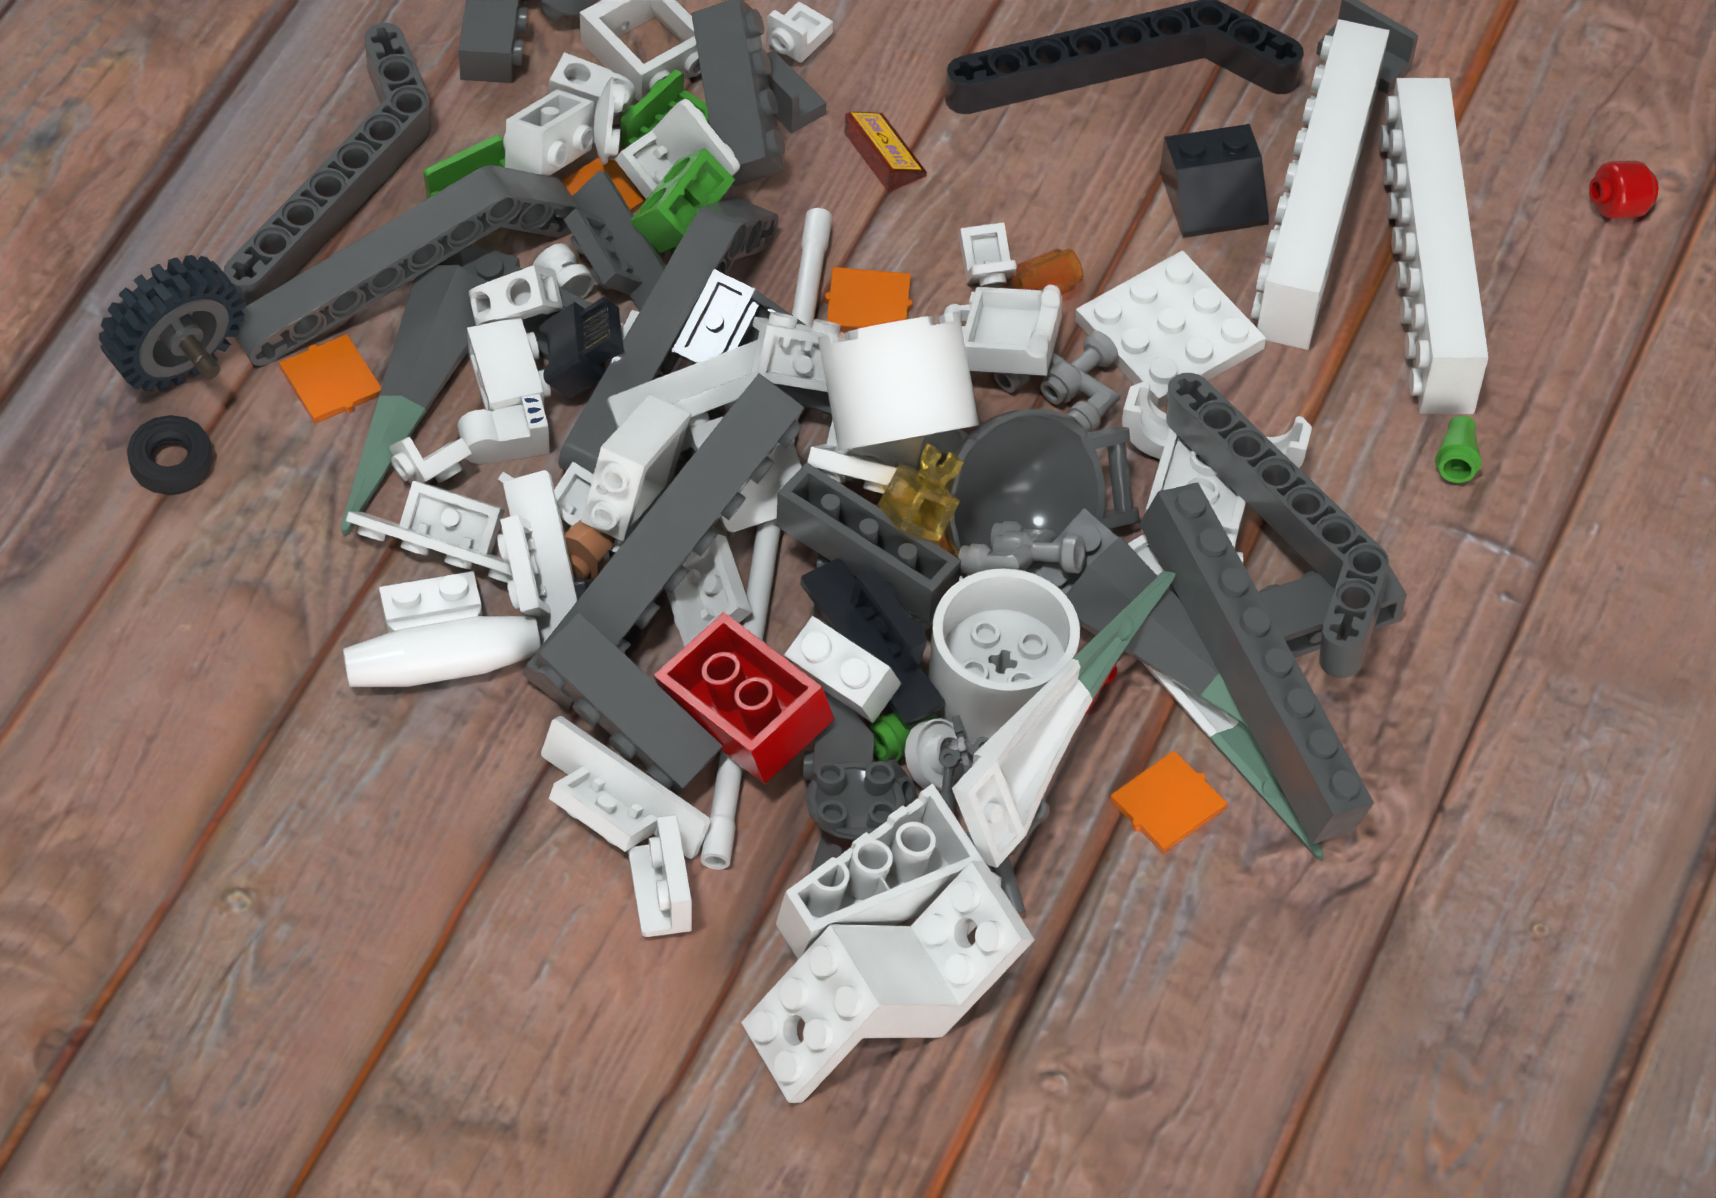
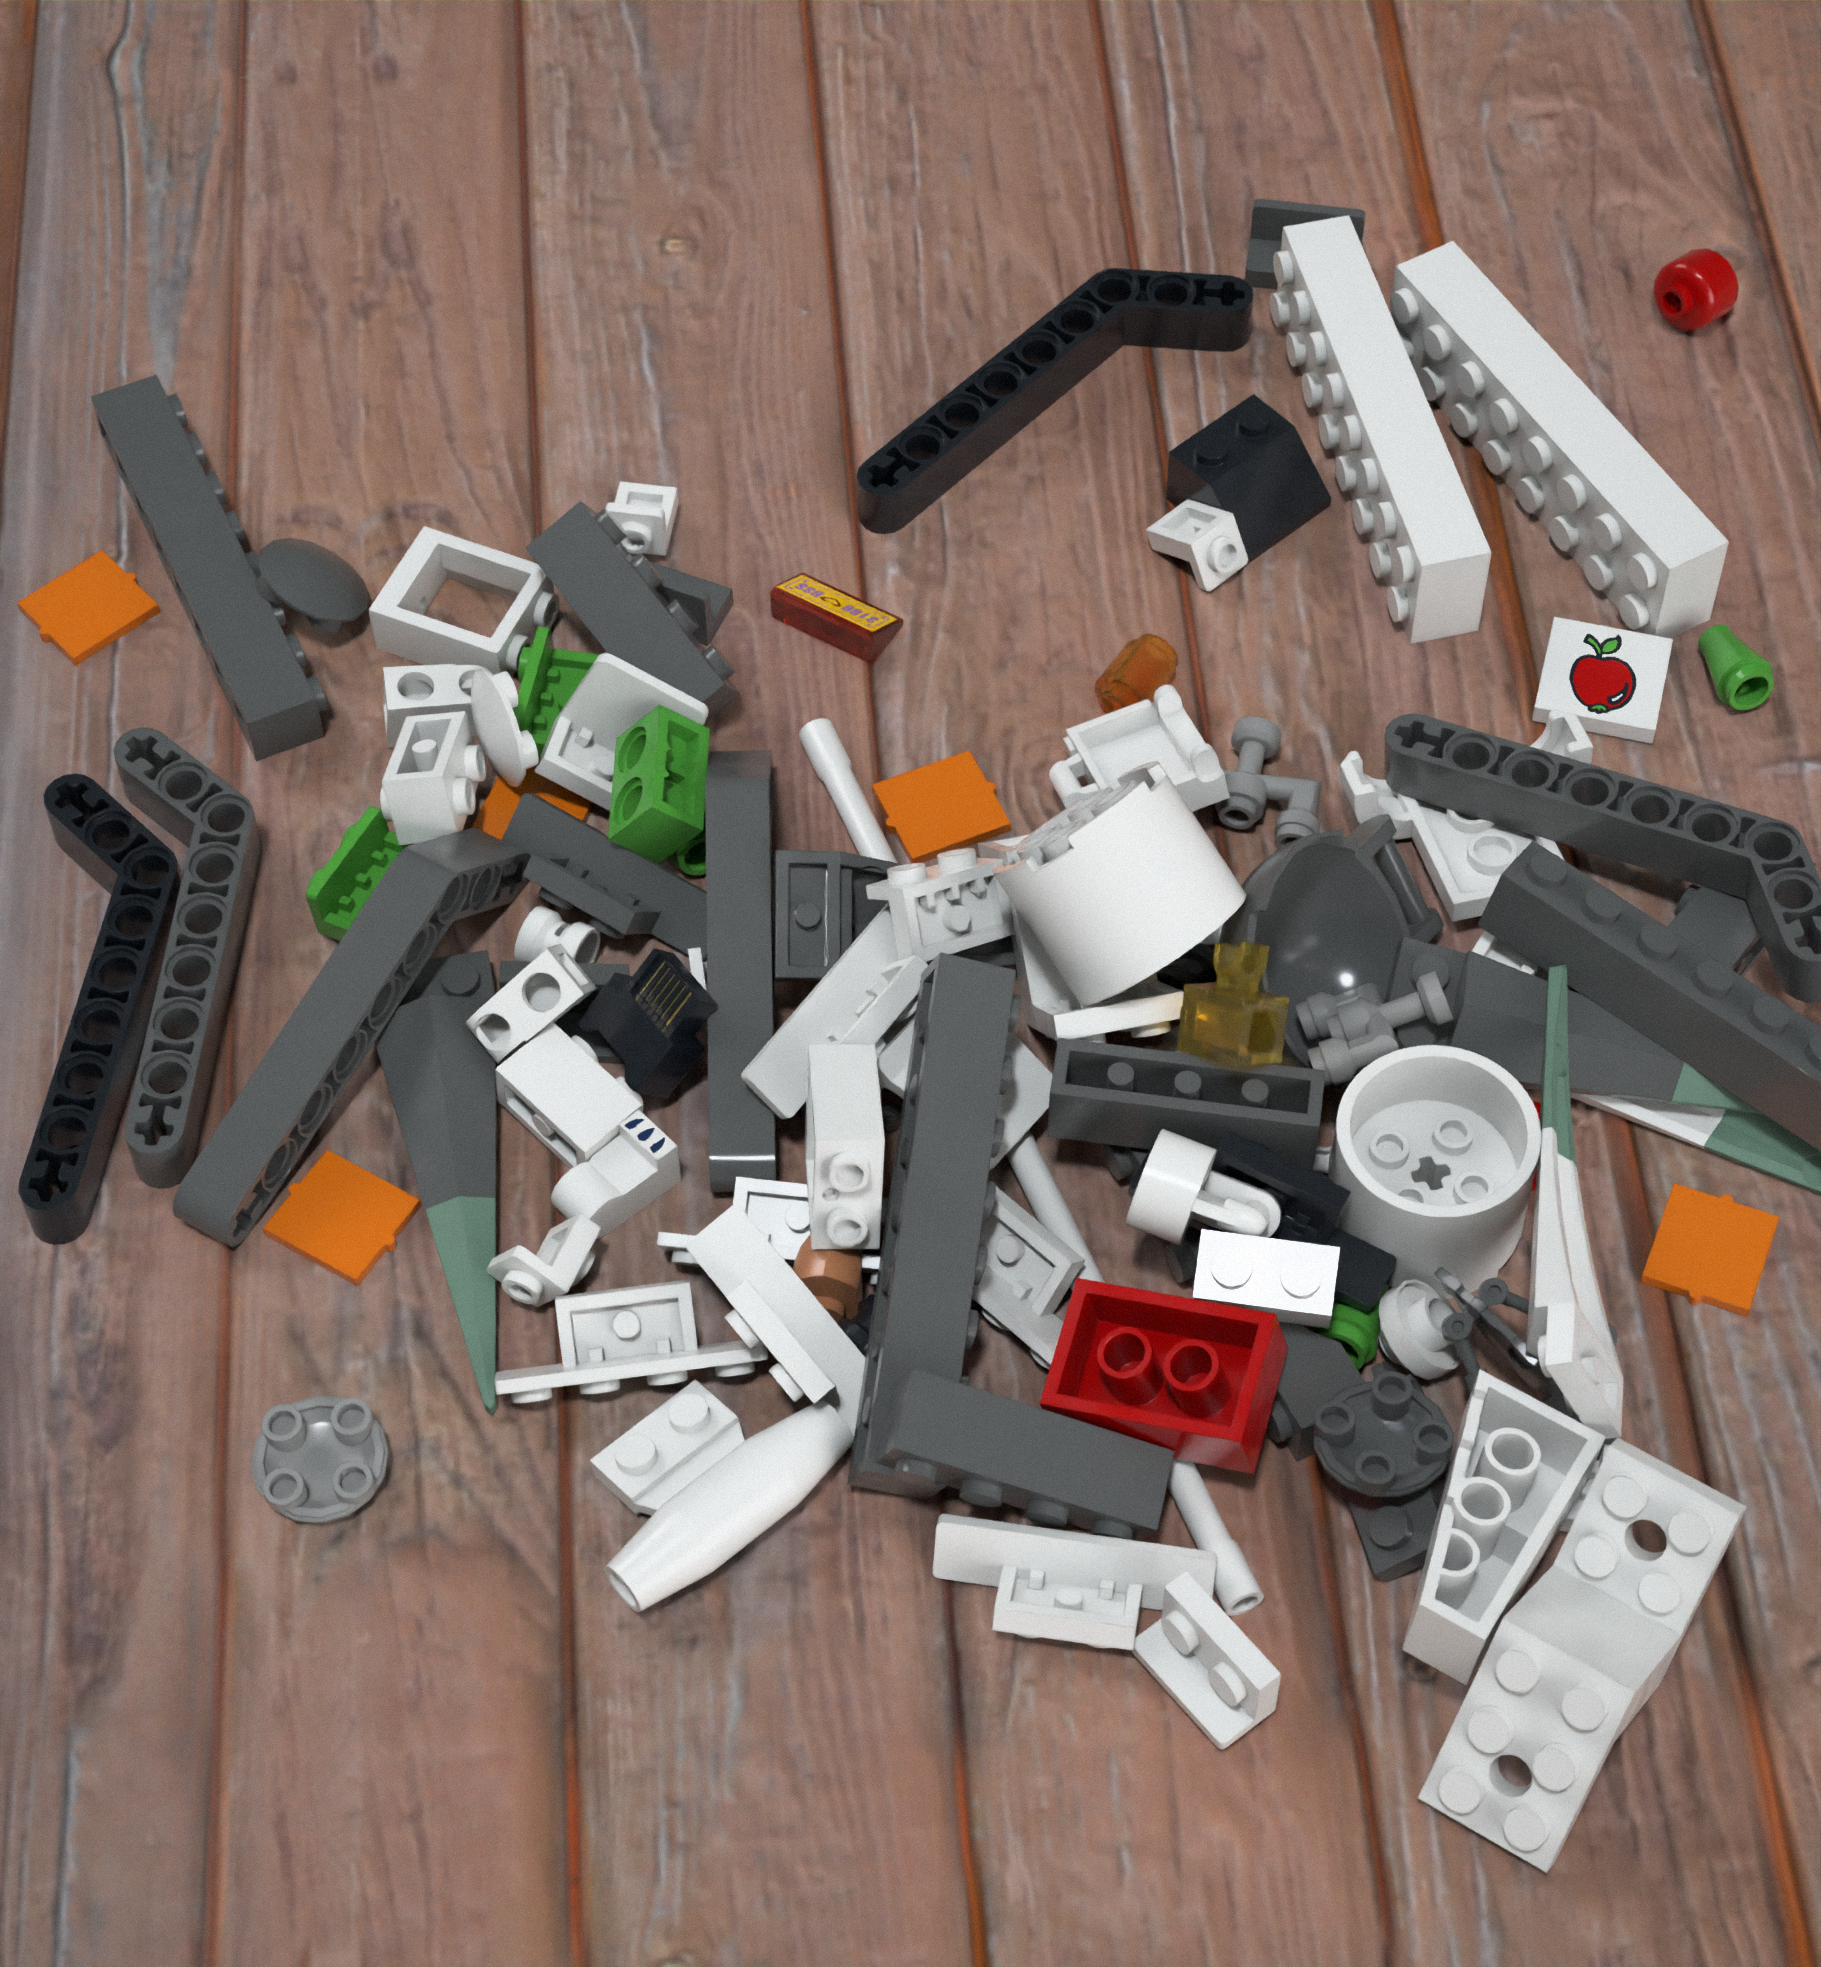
camera: 25 degrees left, 0 degrees up
(164, 431) = (186, 1383): black tyre -> none
(172, 324) = (116, 1245): black wheel -> none
(223, 509) = (319, 1458): none -> light grey dish
(273, 181) = (128, 955): none -> black beam
(823, 587) = (1182, 1187): none -> white piece
(986, 255) = (1048, 687): white bracket -> none
(1156, 208) = (1202, 537): none -> white bracket
(1171, 325) = (1315, 673): white plate -> none
(1366, 418) = (1604, 678): none -> white tile

